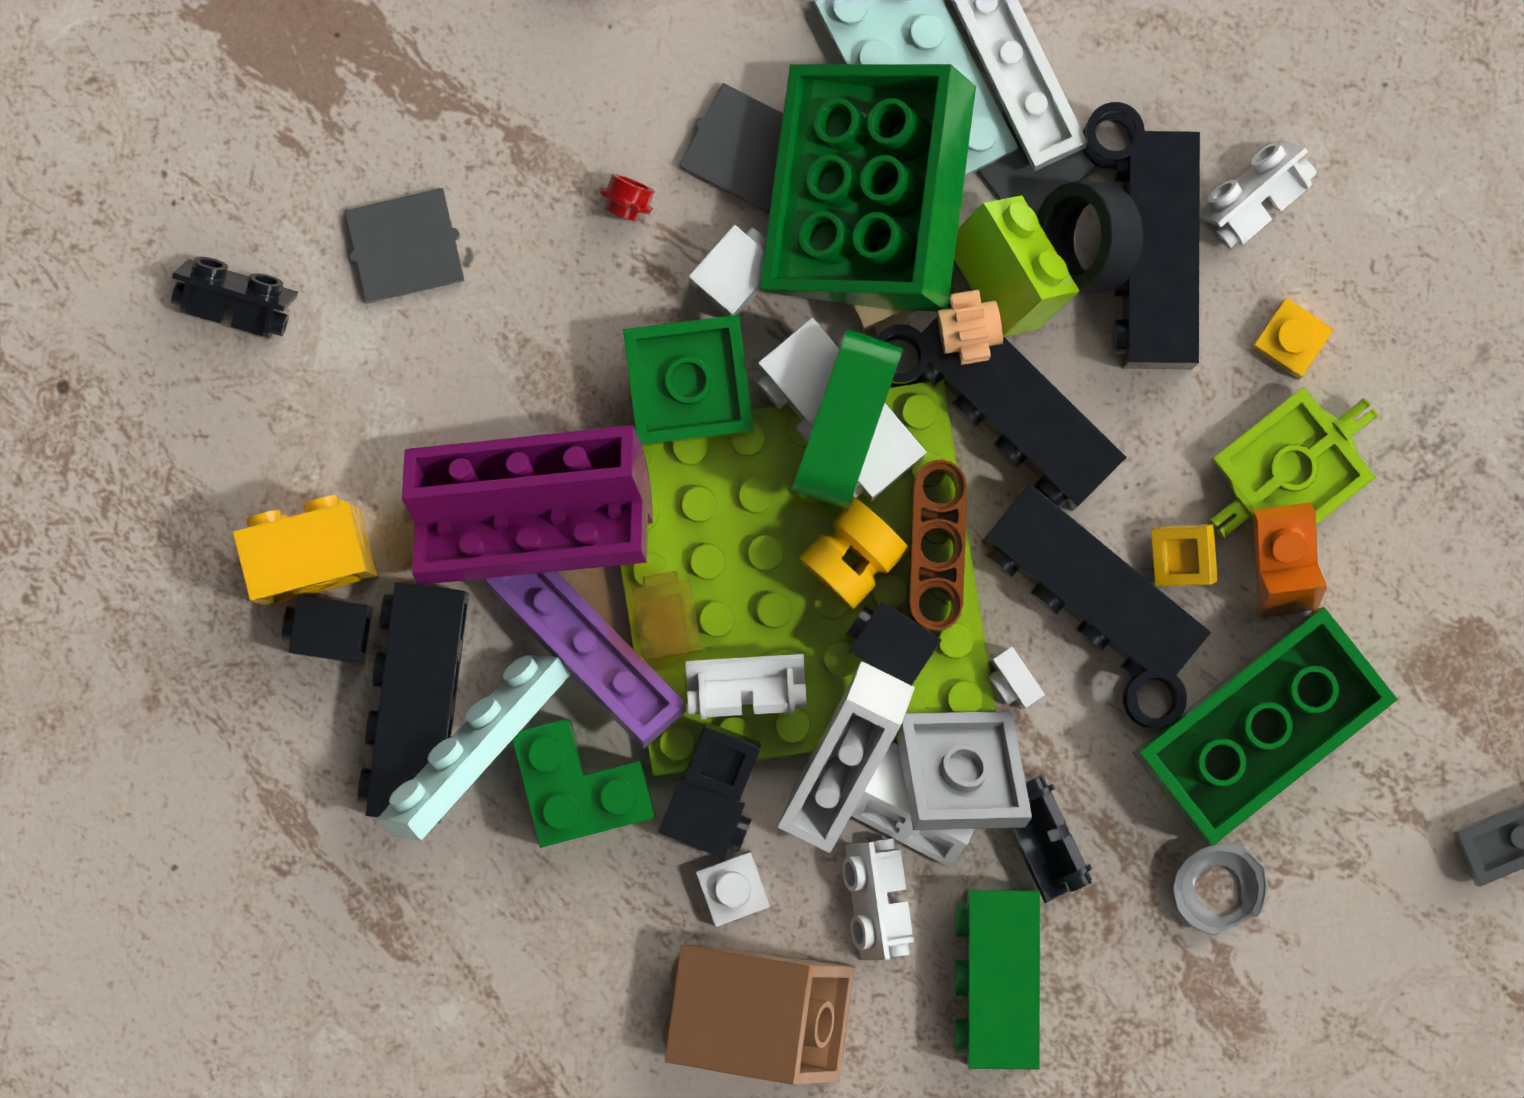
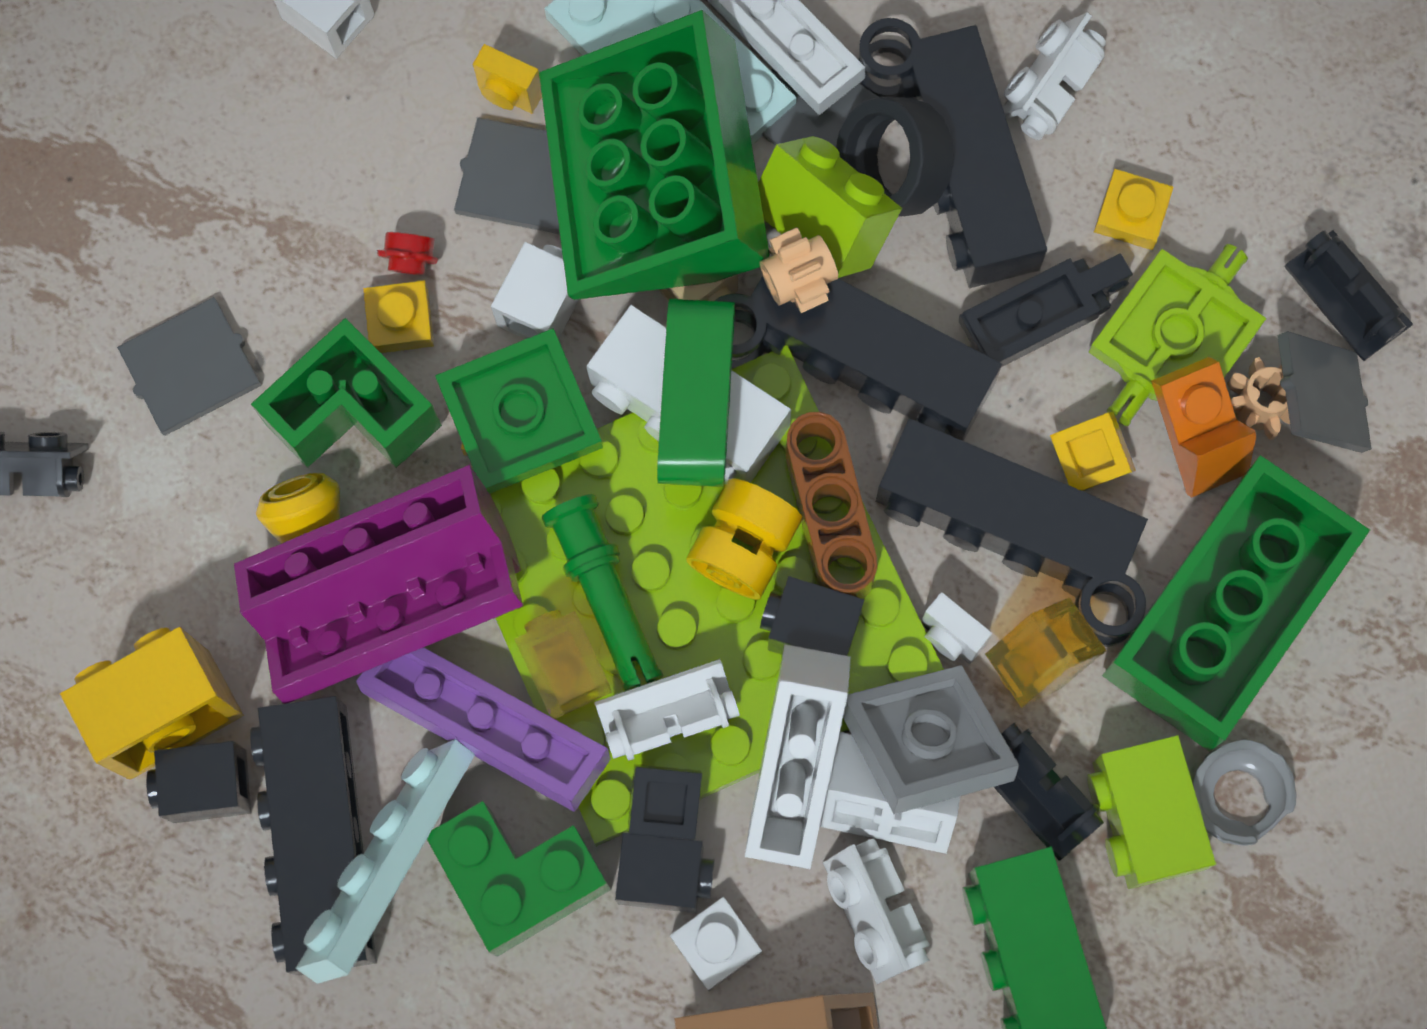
camera: 10 degrees left, 10 degrees down
(474, 409) = (299, 505): none -> yellow cone
(541, 310) = (345, 386): none -> green brick
(603, 253) = (398, 316): none -> yellow plate
(717, 535) = (593, 564): none -> green pin
(758, 59) = (507, 80): none -> yellow plate
(1086, 722) = (1045, 652): none -> clear yellow brick
(1135, 884) = (1150, 813): none -> lime brick
(1180, 410) = (1043, 308): none -> black hinge
(1367, 551) = (1248, 390): none -> light nougat gear
(1404, 560) = (1324, 392): none -> dark grey piece
(1459, 473) = (1348, 294): none -> black hinge

